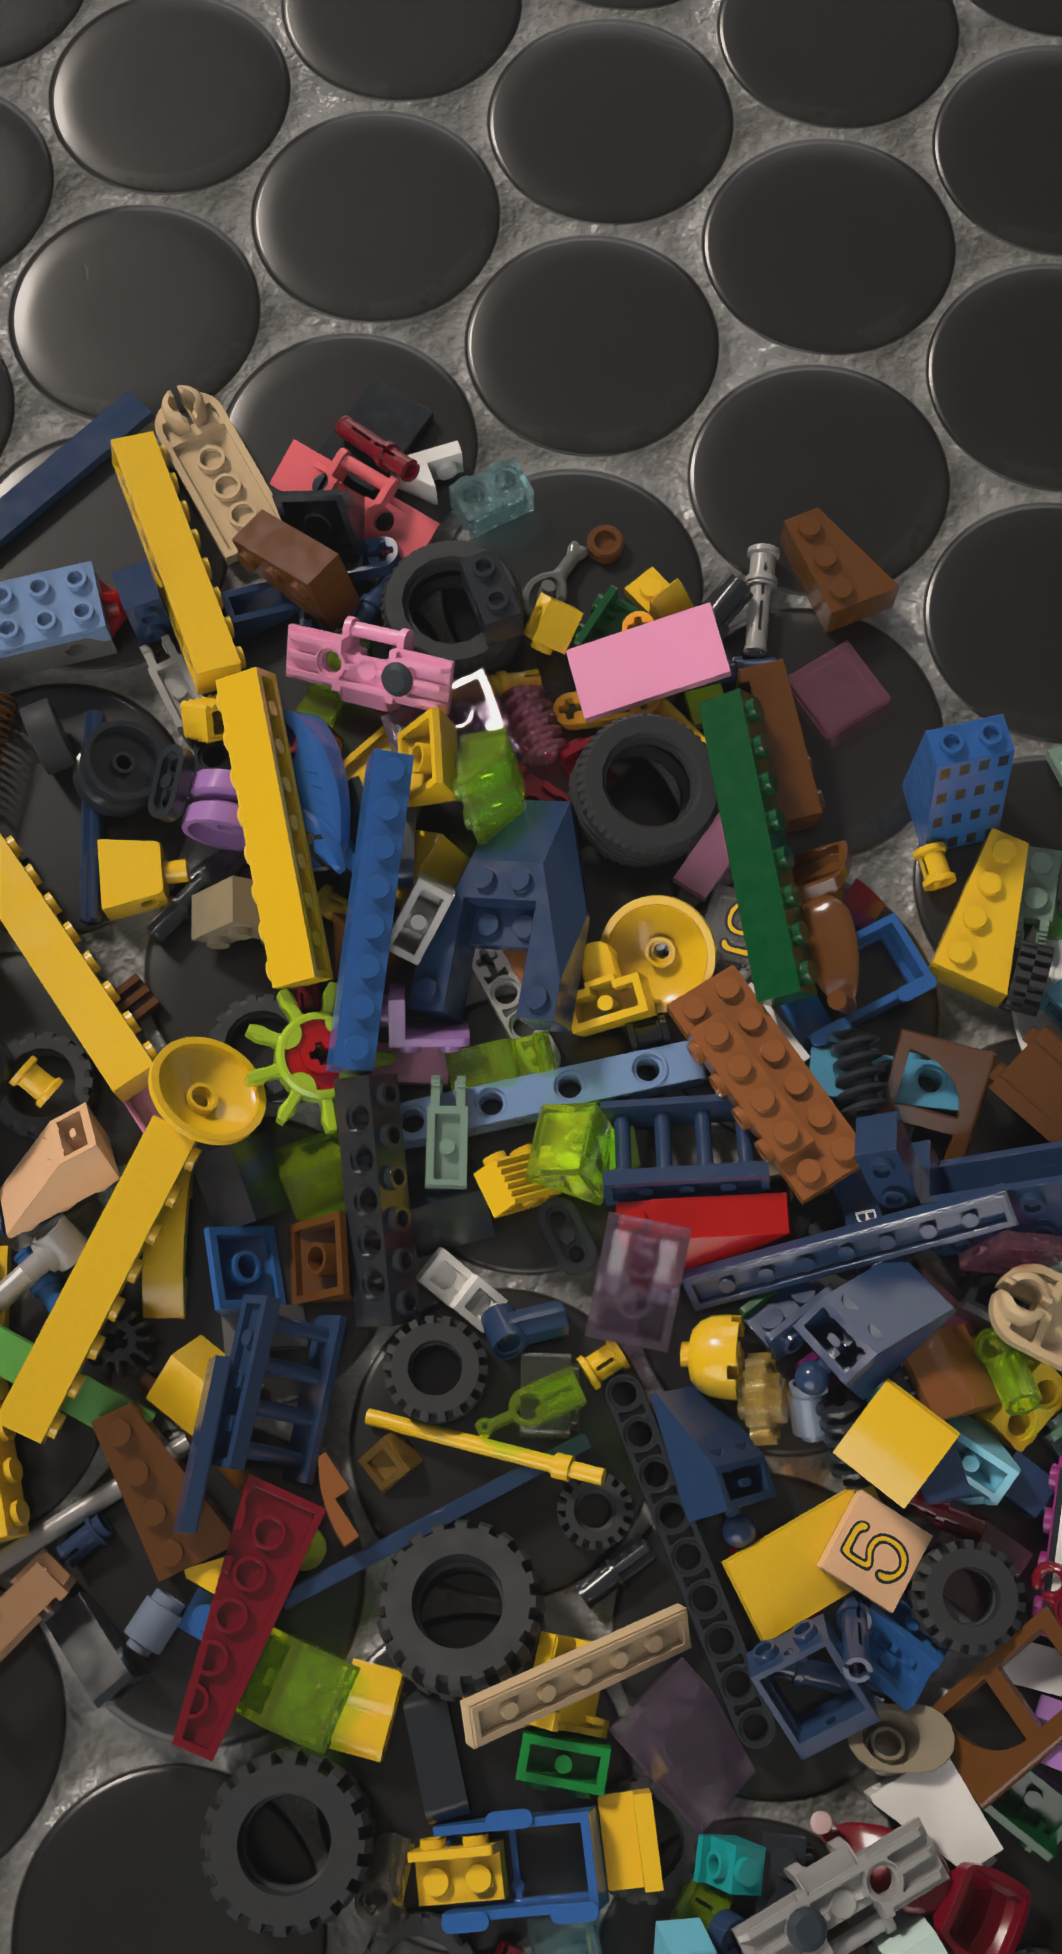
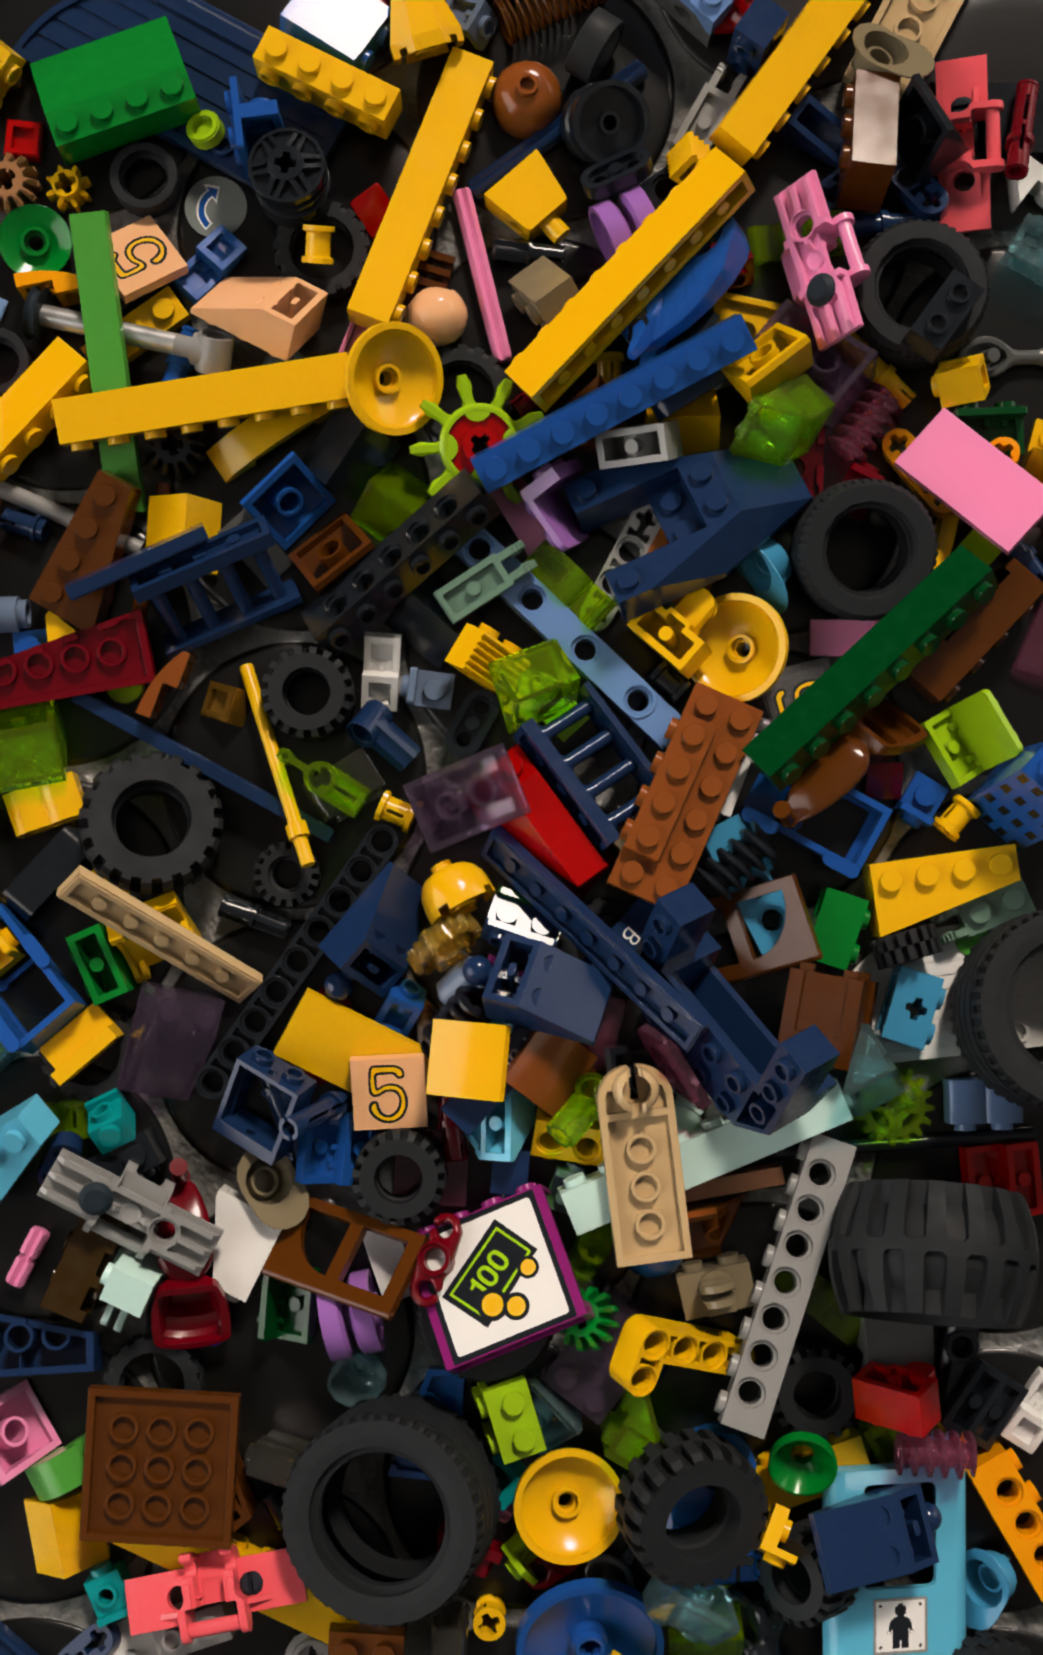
camera: 50 degrees right, 15 degrees up
(41, 1015) = (371, 208): none -> red slope
(47, 824) = (526, 98): none -> dark orange cylinder
(168, 961) = (482, 275): none -> bright pink axle
(175, 1016) = (438, 314): none -> light nougat helmet
(237, 508) = (888, 52): none -> dark tan piece
(507, 1256) = (428, 689): none -> sand blue bracket
(610, 885) = (767, 574): none -> dark azure piece
(796, 1484) = (402, 1006): none -> blue bracket
(871, 806) = (970, 738): none -> lime bracket
(899, 887) = (920, 801): none -> blue bracket
(970, 1022) = (837, 925): none -> green brick

